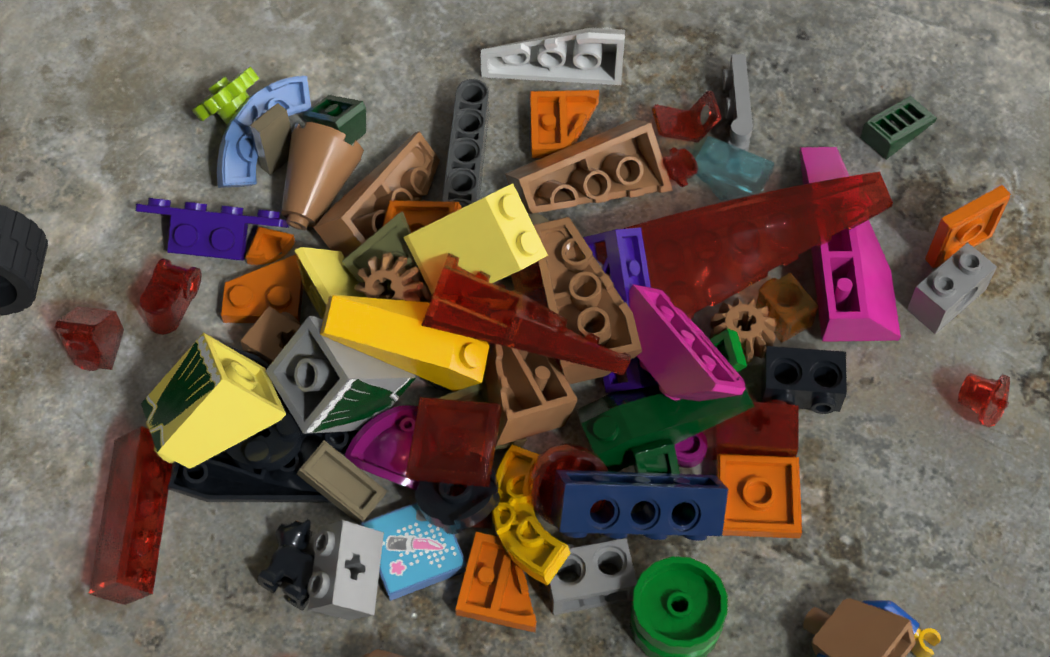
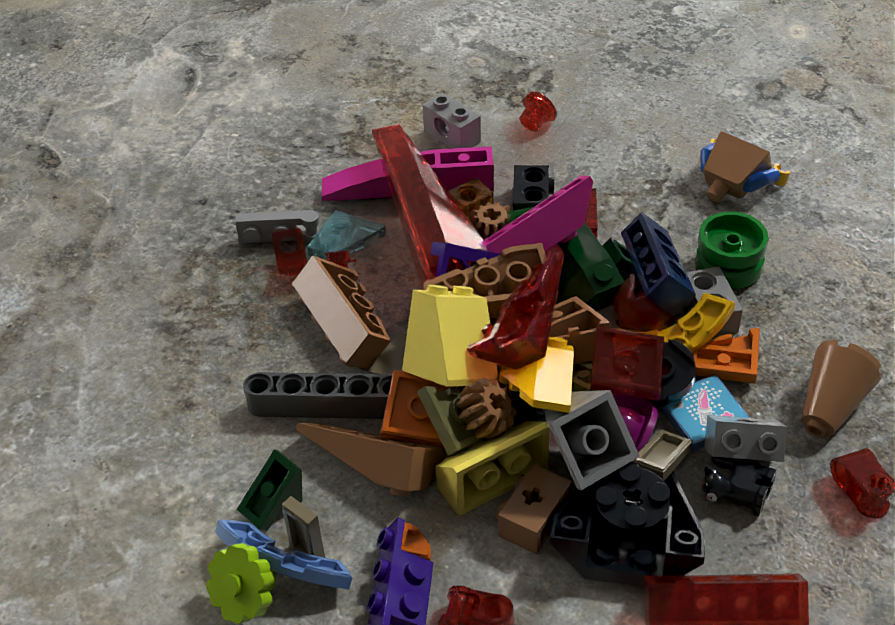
camera: 90 degrees left, 15 degrees down
(209, 403) = (633, 520): light yellow slope -> none
(271, 286) = (468, 540): orange wing -> none
(316, 172) = (345, 498): medium nougat cone -> none
(559, 118) = (284, 338): orange wing -> none
(572, 56) = (217, 319): white wedge -> none
(761, 495) = (618, 212): orange plate -> none
(886, 144) = (304, 150): dark green slope -> none
(969, 224) = (406, 107): orange plate -> none

